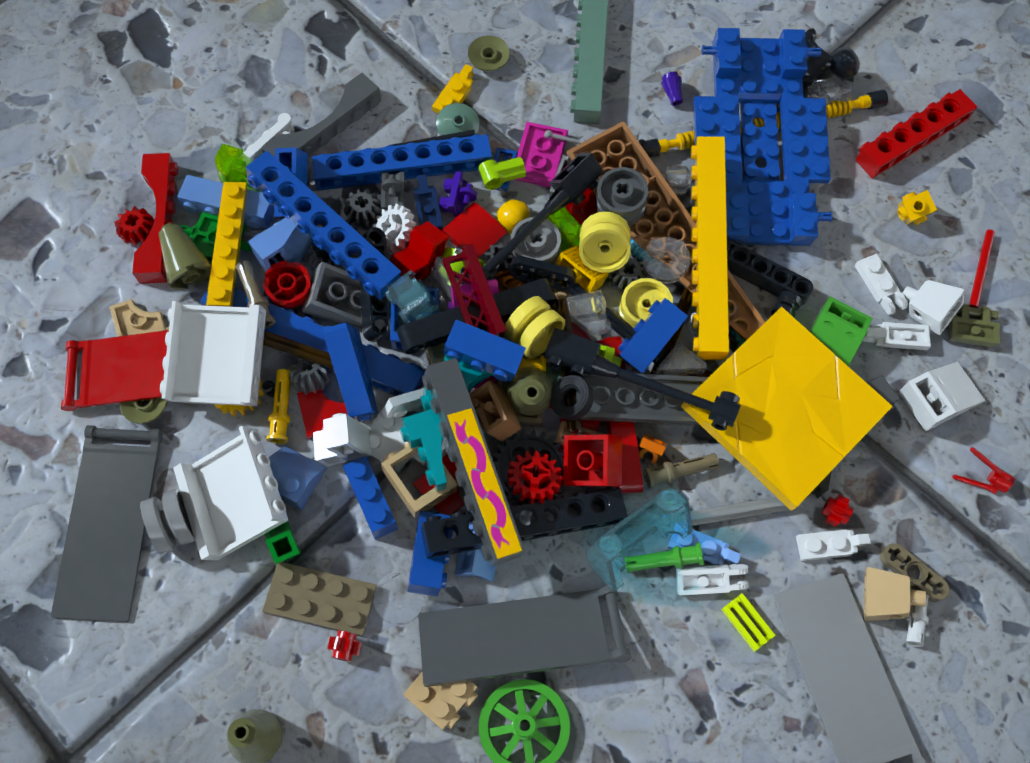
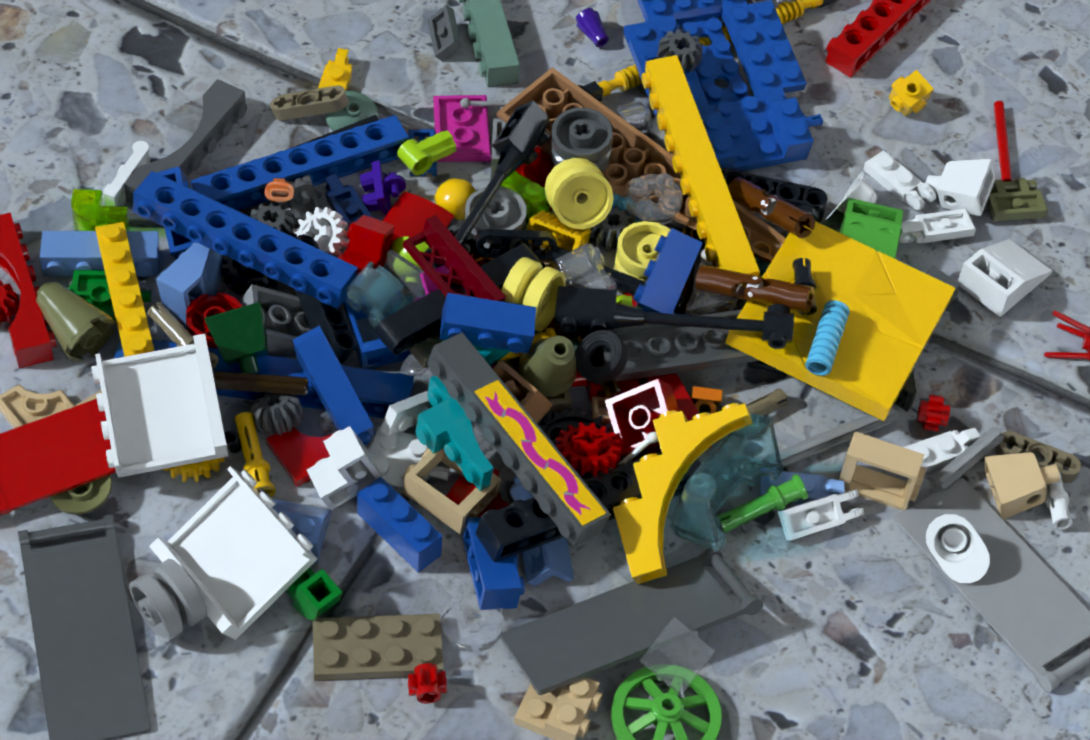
camera: 20 degrees left, 15 degrees down
(295, 308) = (240, 336): none -> dark green torso
(372, 182) = (279, 190): none -> orange piece
(440, 107) = (323, 101): none -> dark tan beam
(488, 47) = (361, 31): olive dish -> none
(545, 684) = (677, 656): none -> clear piece
(553, 68) = (444, 33): none -> dark grey plate
(556, 557) = (658, 476): none -> yellow arch
(589, 482) = (651, 438): none -> white hinge
(714, 368) = (758, 289): none -> reddish brown piece
(739, 128) = (684, 46): none -> dark grey gear
(755, 616) = (879, 547): neon yellow tile -> none
(758, 294) = (771, 207): none -> reddish brown piece
(761, 377) = (803, 276): none -> black pin
(764, 430) = (827, 338): none -> medium azure piece
(774, 557) = (877, 485): none -> tan window
(815, 647) = (958, 548): none -> white piece
(840, 290) = (859, 190): none -> white piece
(853, 560) = (968, 459): none -> light grey axle

